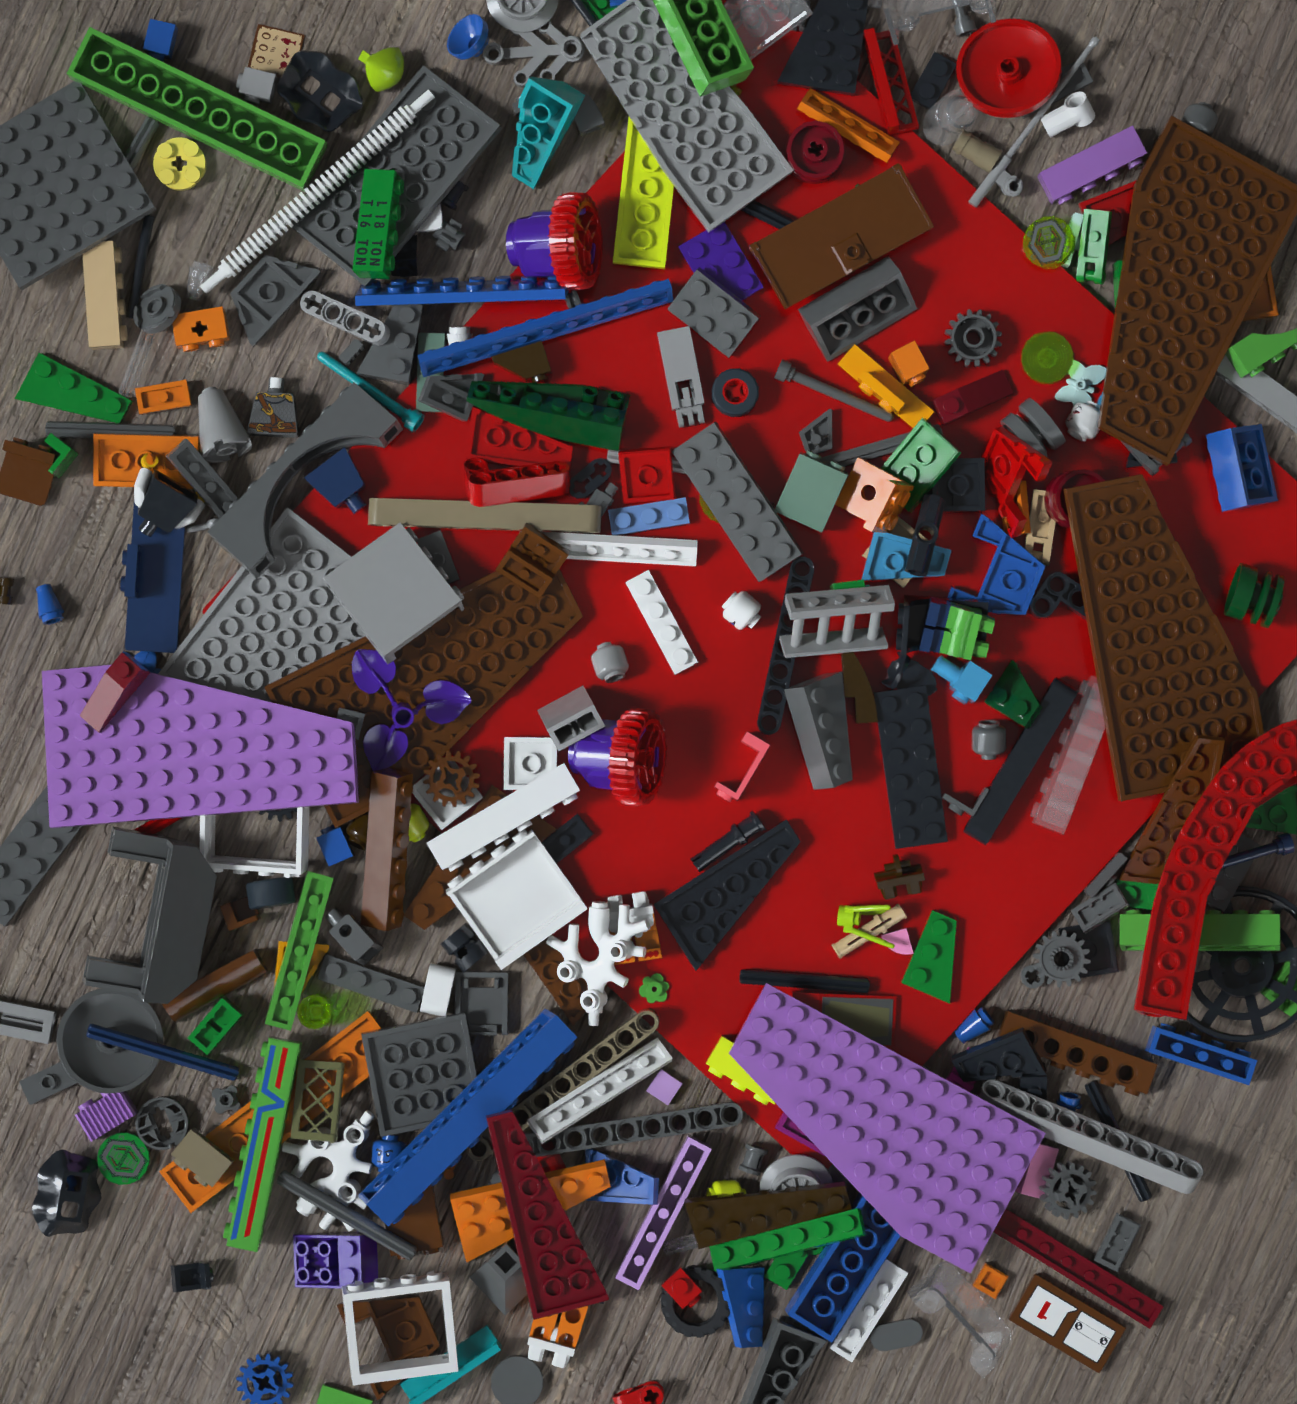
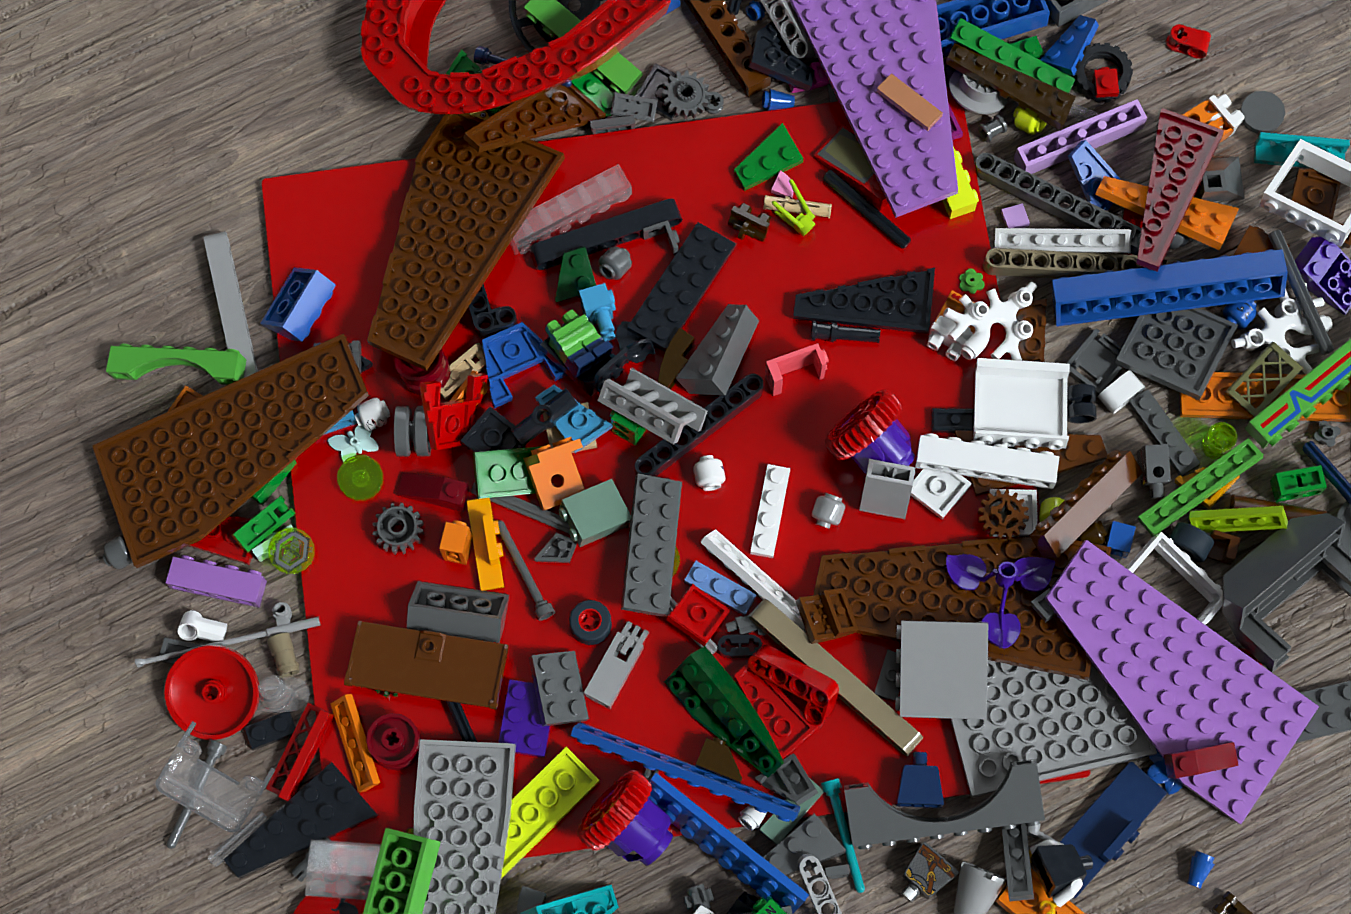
camera: 140 degrees left, 15 degrees down
(241, 944) = (1239, 519): none -> lime plate
(841, 1105) = (909, 102): none -> nougat tile
(1254, 595) = (363, 214): dark green wheel -> none

